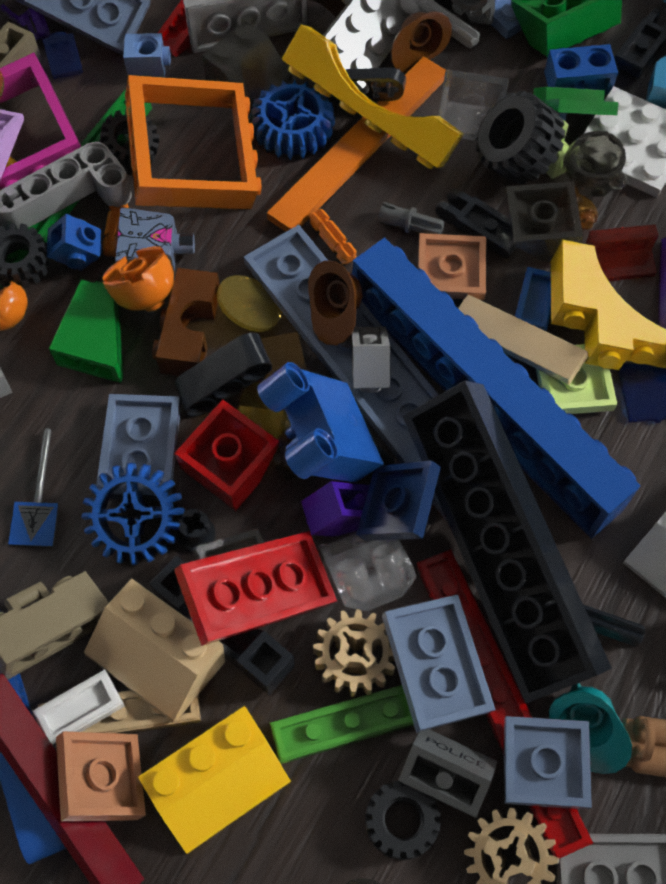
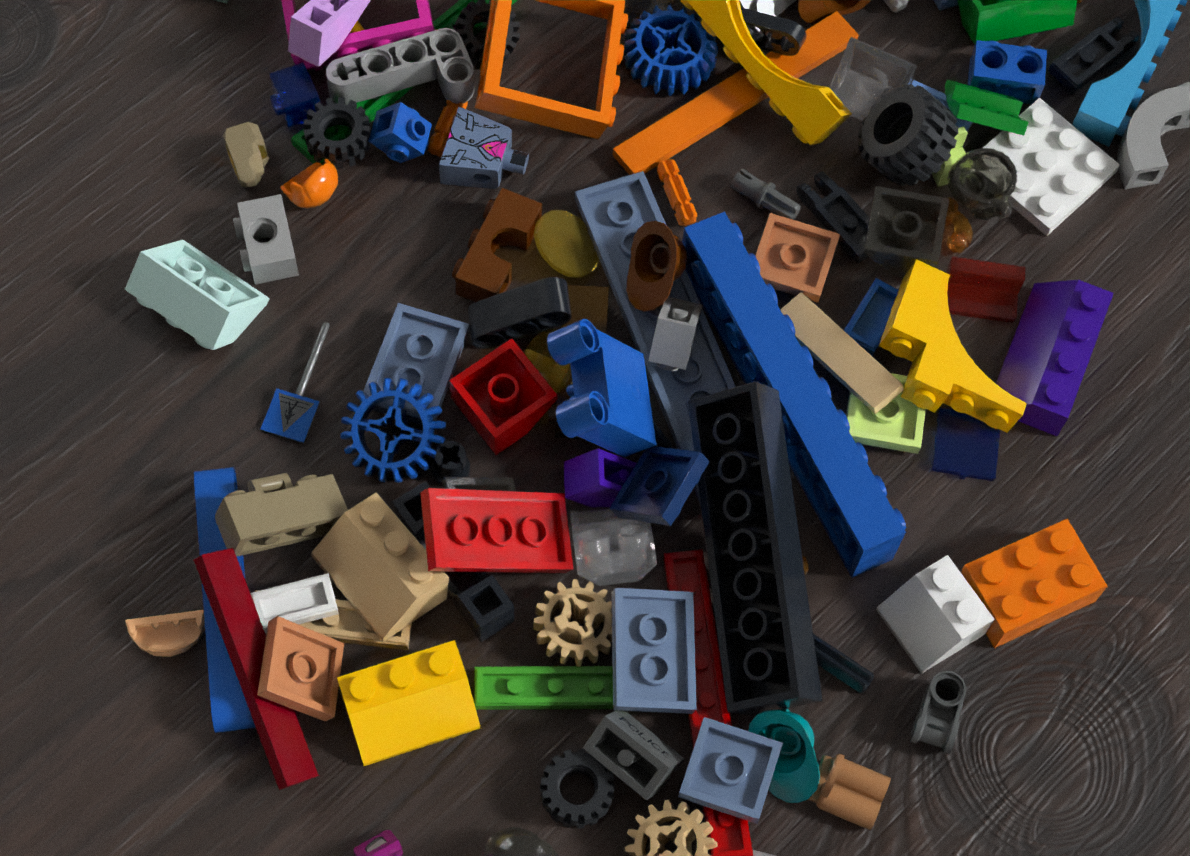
camera: 10 degrees right, 0 degrees up
(90, 334) = (395, 234): green slope -> none
(142, 281) = (460, 193): orange cylinder -> none

